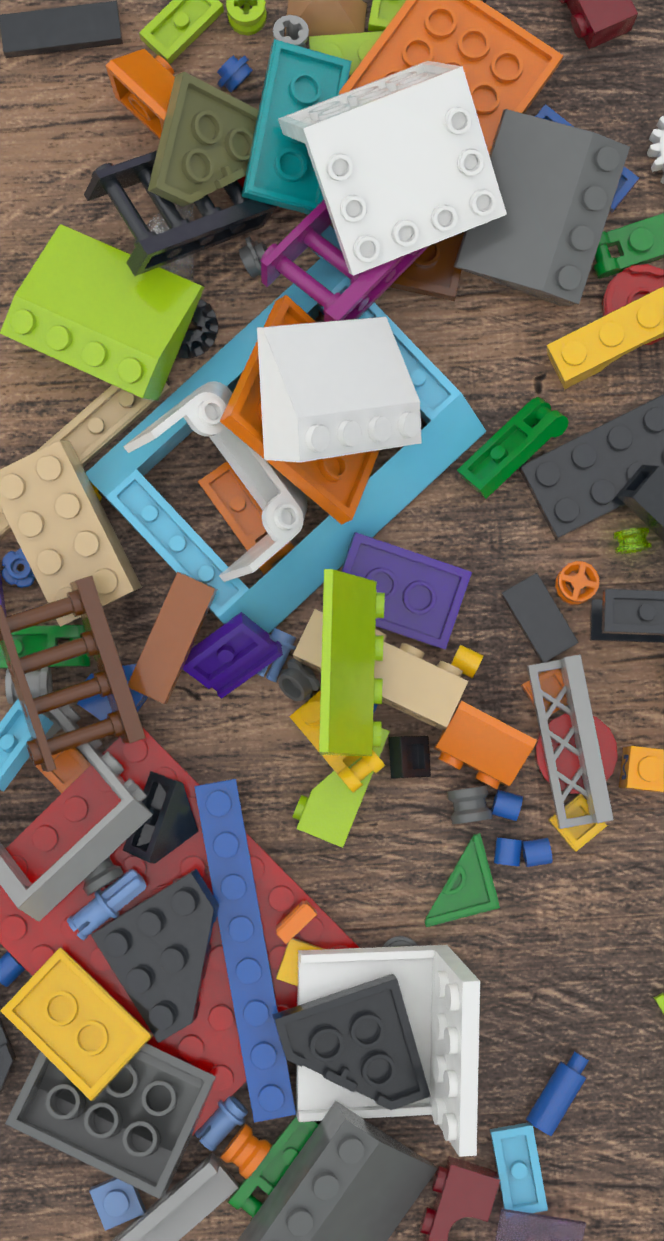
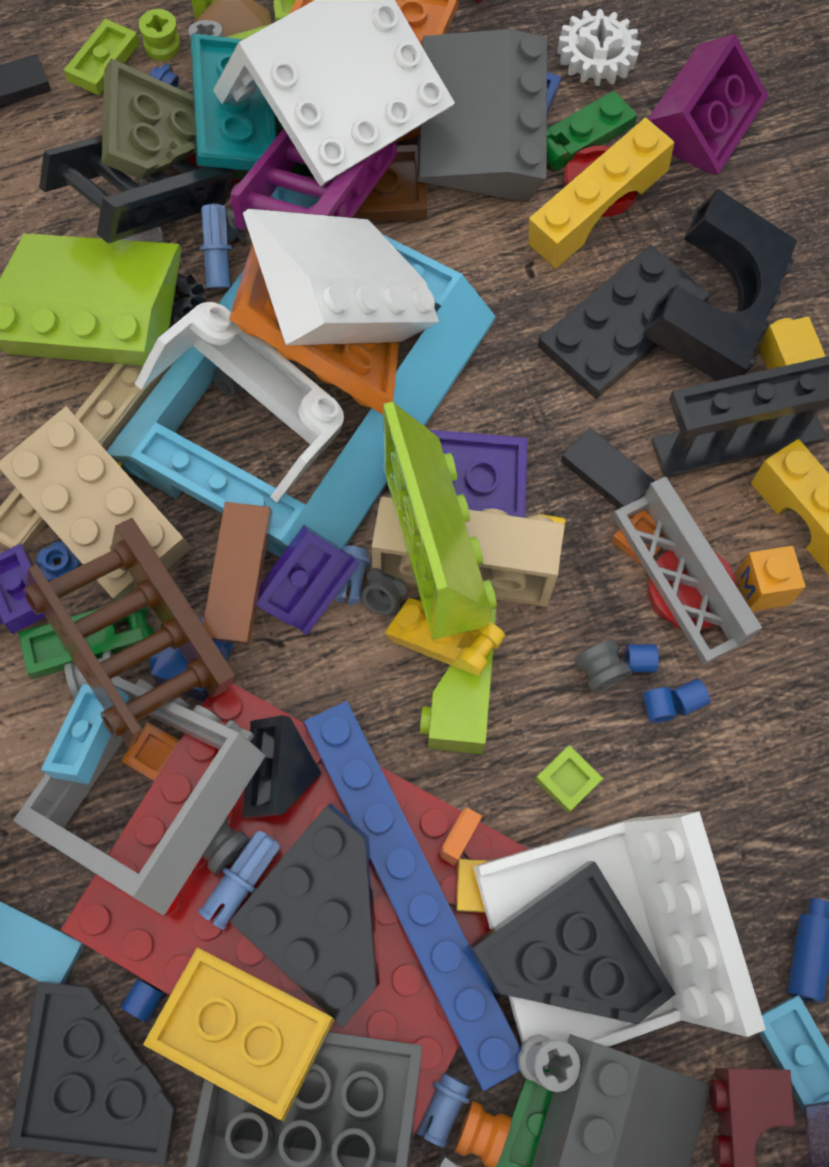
camera: 20 degrees left, 15 degrees down
(143, 86) = (72, 105): orange slope -> none
(238, 286) = (215, 246): none -> medium blue axle
(239, 510) = (274, 446): orange plate -> none
(319, 1124) = (563, 1067): none -> light grey bush
(406, 893) = (568, 779): none -> lime plate
(409, 757) = (524, 636): black plate -> none
(467, 889) = (630, 757): green tile -> none
(484, 745) = (599, 595): orange slope -> none
(512, 446) = (525, 322): green plate -> none
(578, 835) = (724, 668): yellow tile -> none
(579, 575) = (640, 419): orange wheel -> none
(632, 540) = (671, 374): clear neon green bush -> none

